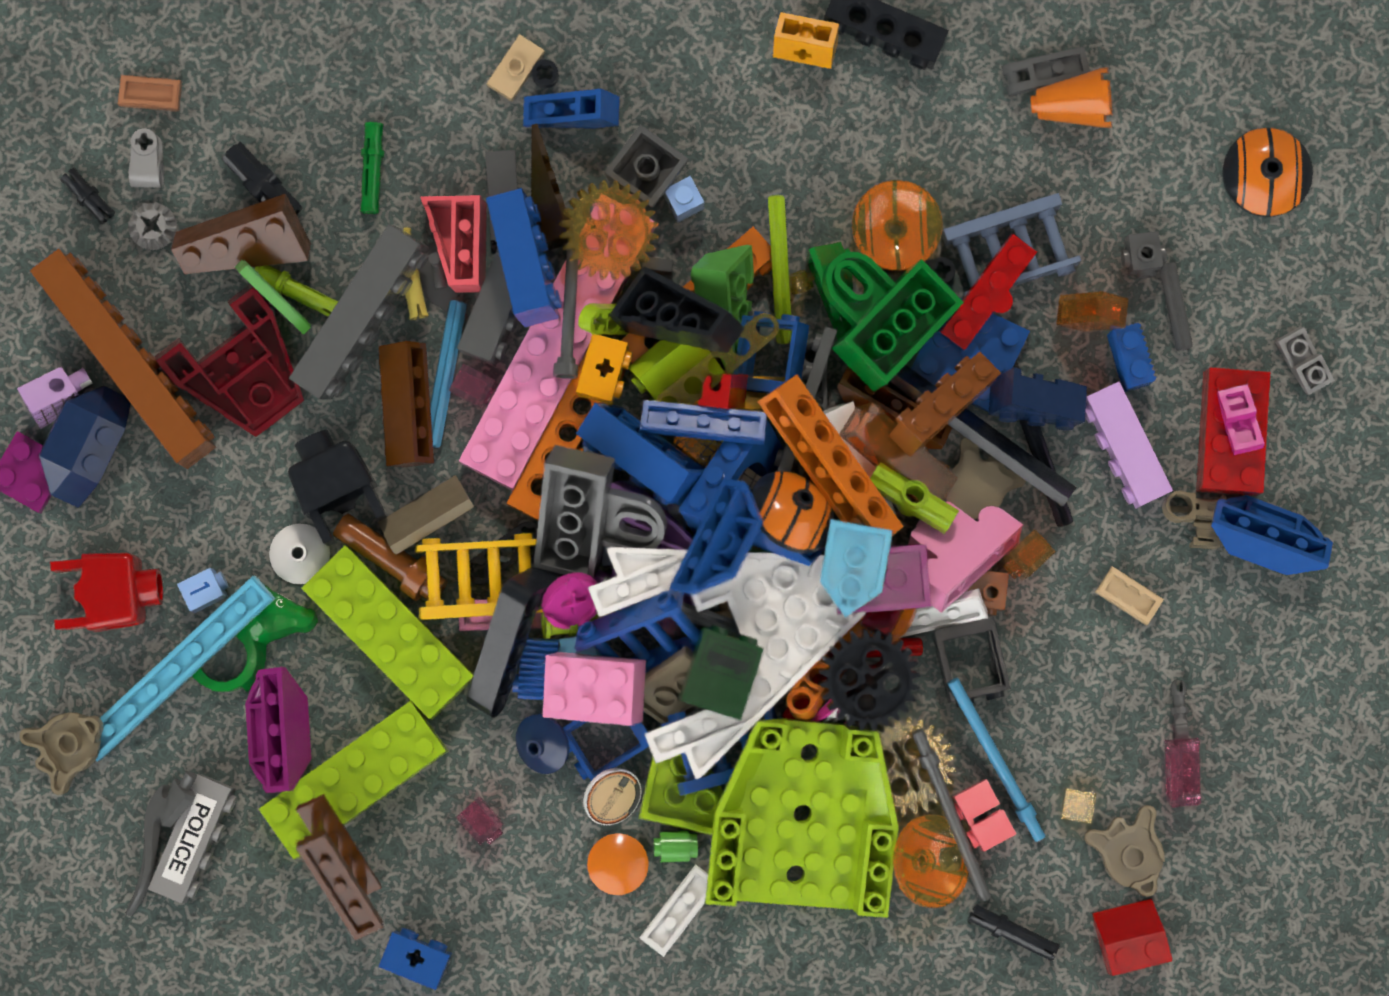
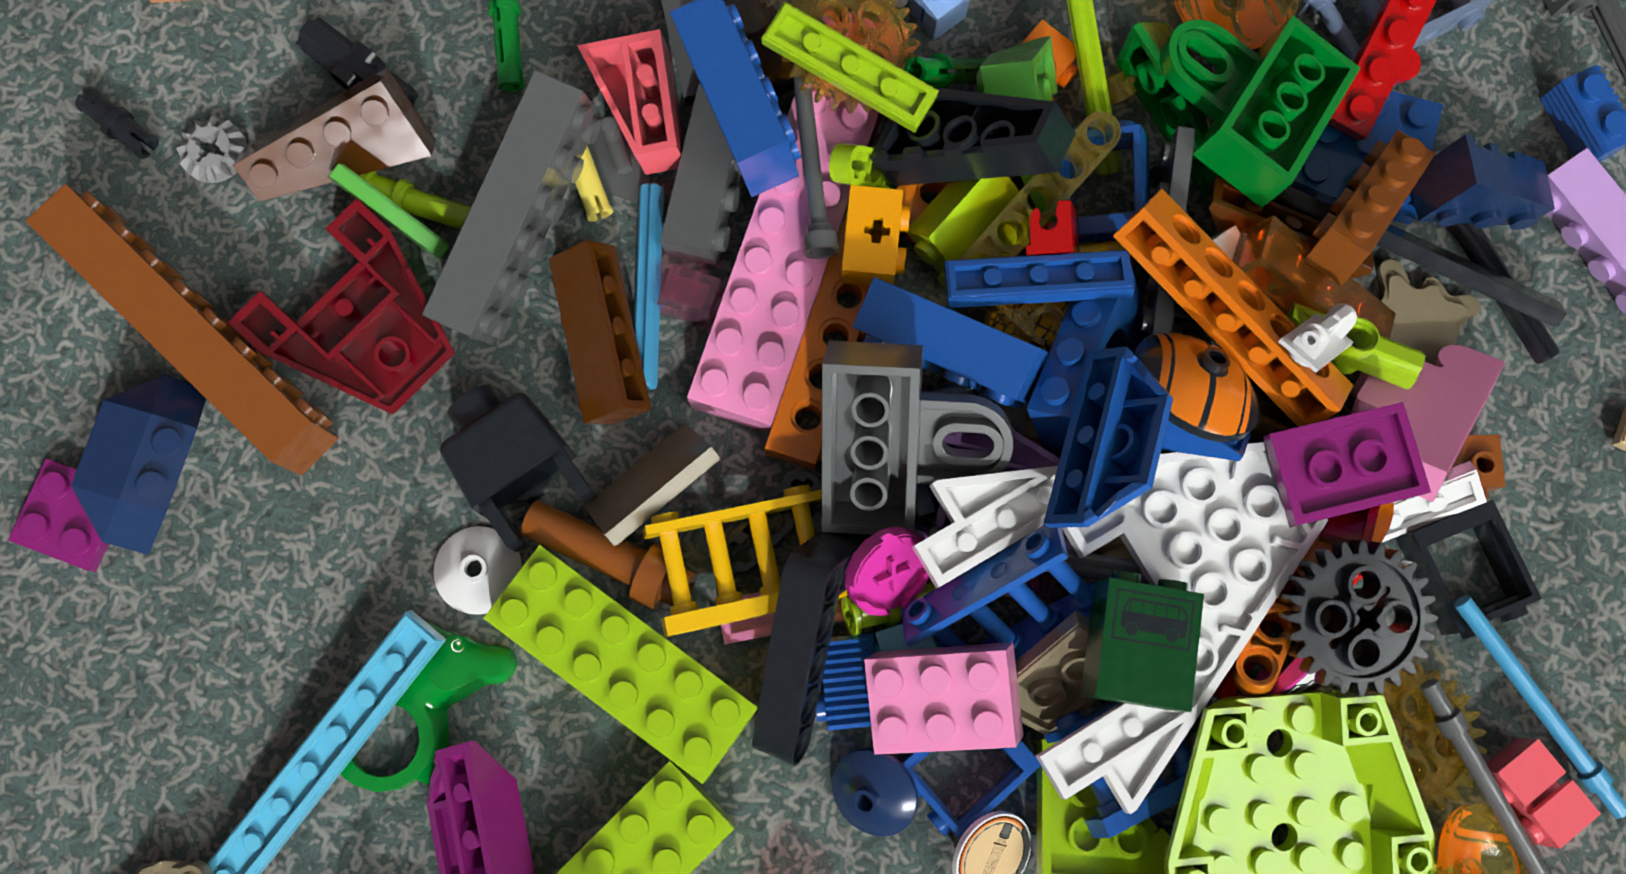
camera: 10 degrees left, 5 degrees down
(43, 393) = (76, 392): lavender torso -> none
(111, 591) = (200, 668): red piece -> none
(146, 166) = (191, 60): light grey piece -> none
(203, 589) = (341, 644): light blue brick -> none
(603, 254) = (849, 67): none -> lime tile
(672, 257) = (930, 66): none -> green pin
(854, 564) = (1309, 446): medium azure tile -> none
(880, 493) = (1320, 337): none -> white hinge
(1027, 556) = (1523, 403): clear orange brick -> none
(1092, 311) = (1530, 59): clear orange brick -> none

